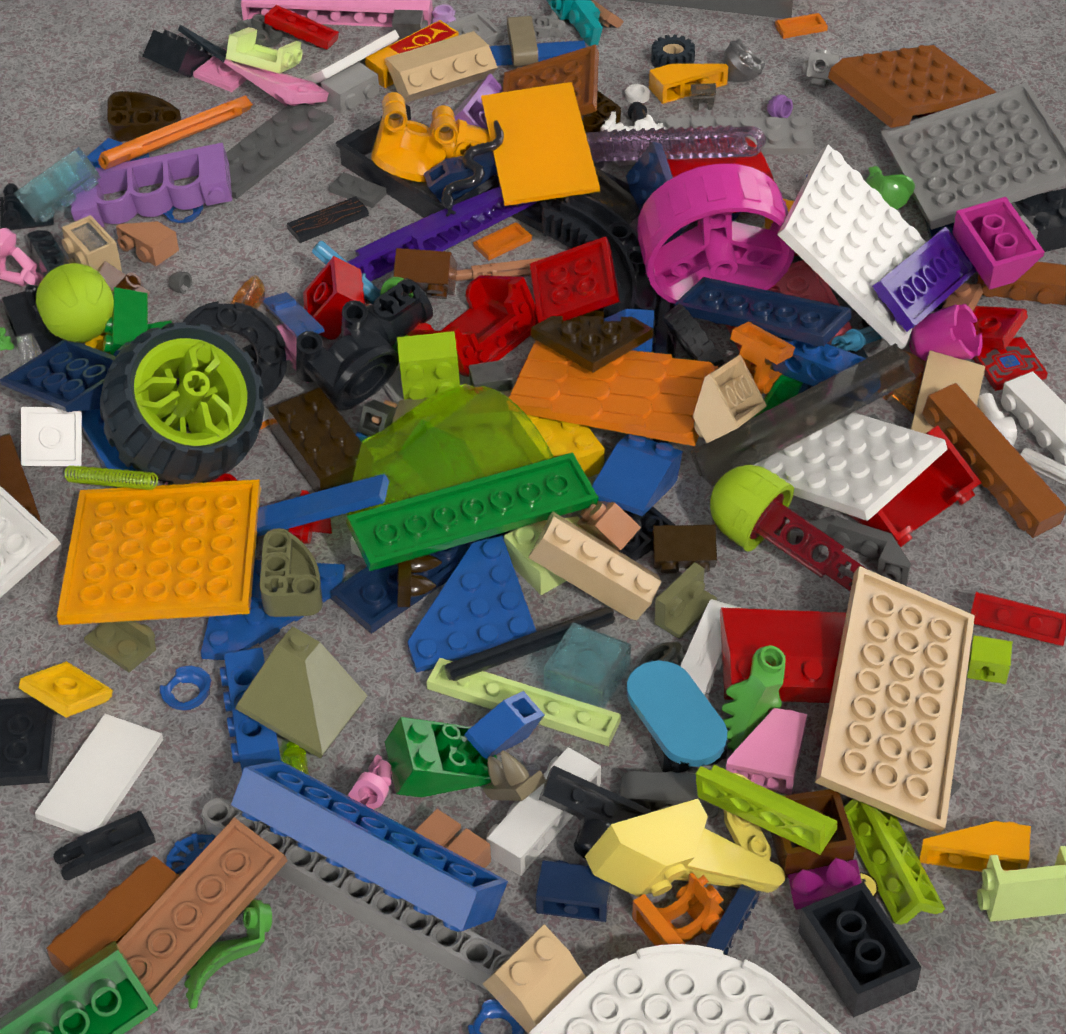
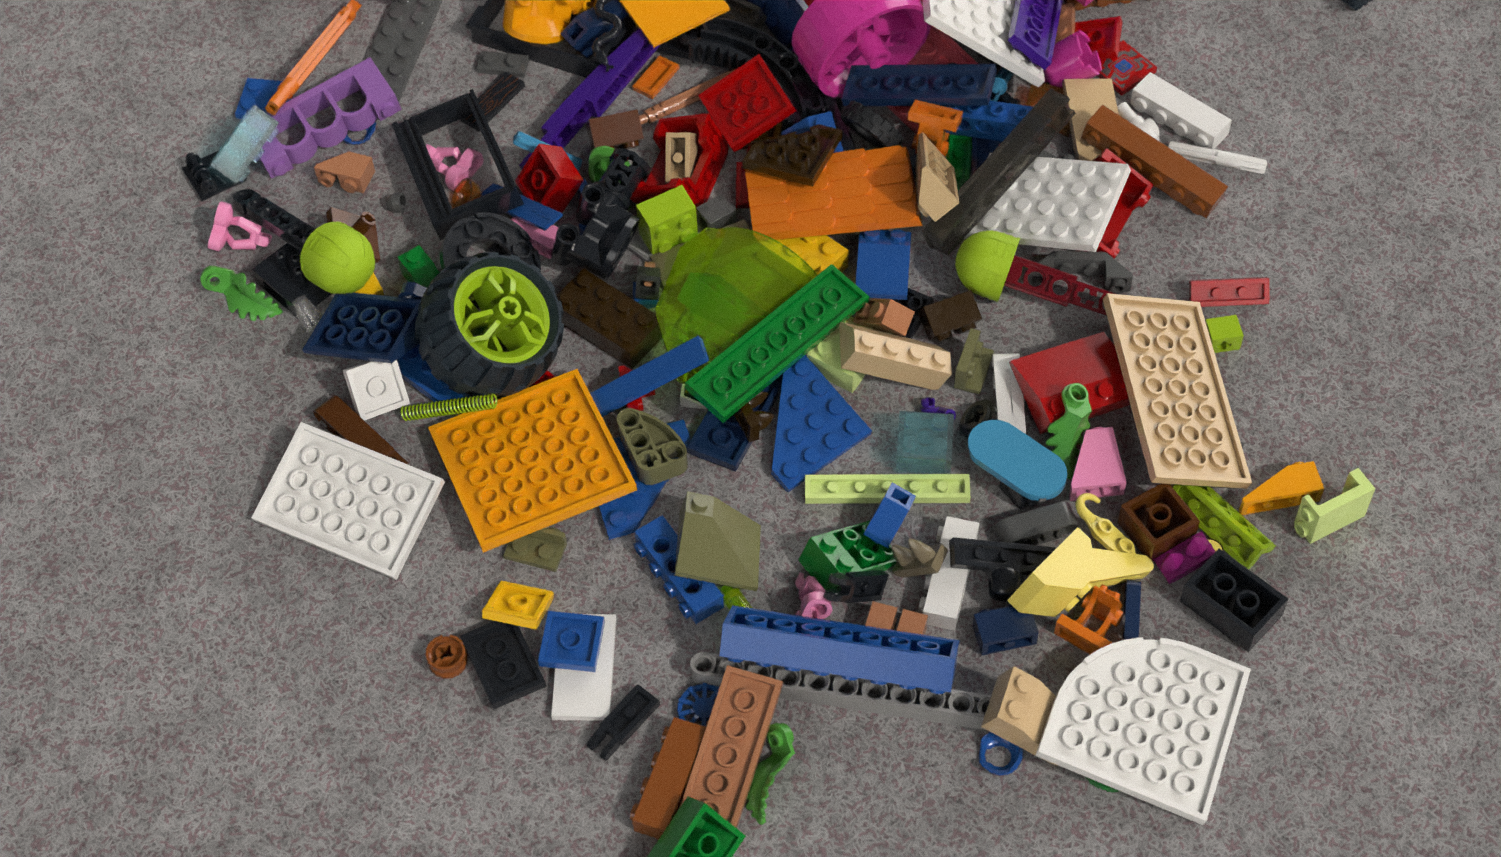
camera: 20 degrees left, 10 degrees up
(90, 244) = (307, 197): tan piece -> none
(96, 742) = (571, 641): none -> blue plate
(127, 320) = (391, 262): green slope -> none
(138, 114) = (265, 42): dark brown beam -> none
(187, 674) = (614, 556): blue piece -> none
(221, 226) = (426, 177): none -> black piece
(269, 266) = (467, 163): none -> bright pink piece
(426, 786) = (857, 586): none -> black hinge
(482, 310) = (680, 155): none -> tan slope
(525, 645) = (869, 440): black axle -> none
(615, 630) = (928, 406): none -> dark purple arm
(765, 808) = (1124, 515): lime fence -> none

